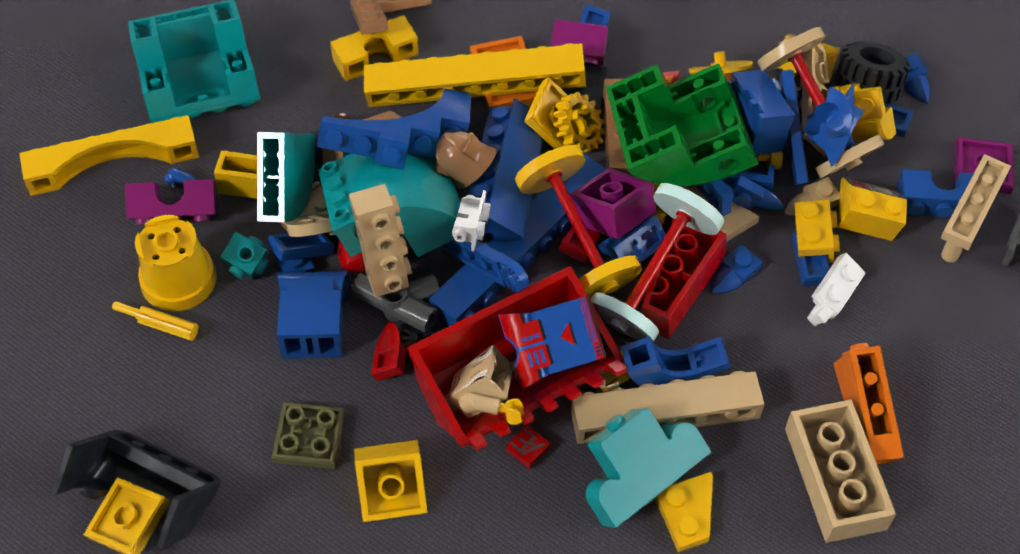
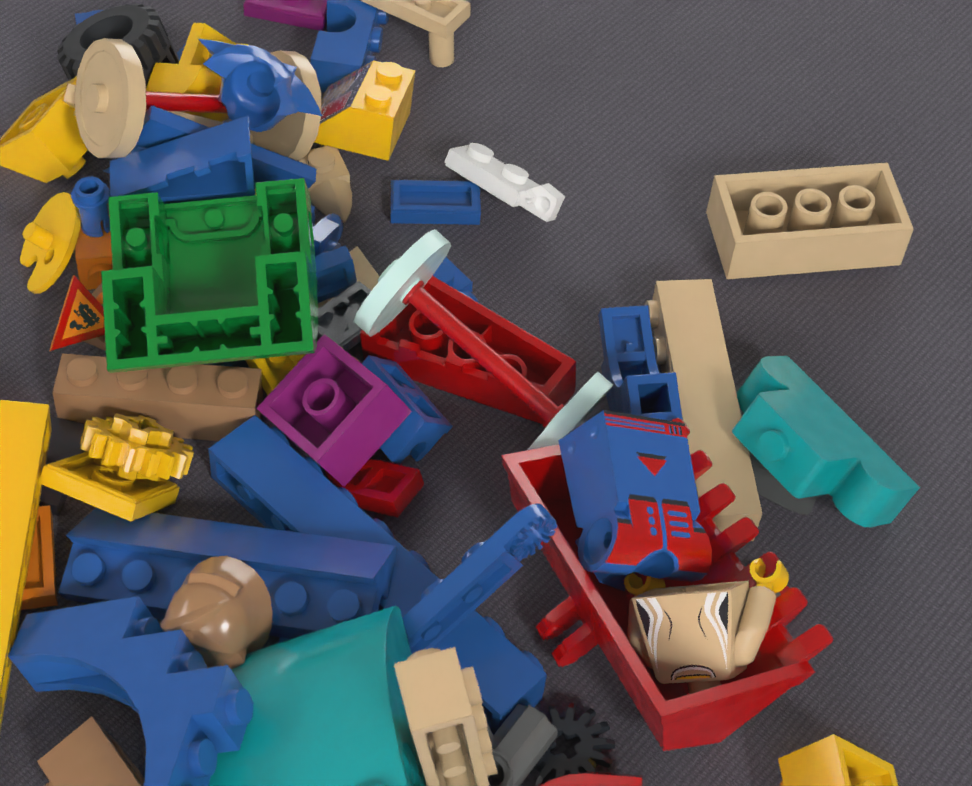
camera: 90 degrees left, 5 degrees down
(469, 222) = (419, 587): white hinge -> none
(551, 171) = (287, 469): yellow piece -> none
(687, 510) = (879, 408): yellow wing -> none
(733, 63) = (91, 199): none -> blue pin
(814, 229) = (396, 179): yellow bracket -> none
(865, 381) = (676, 165): orange slope -> none

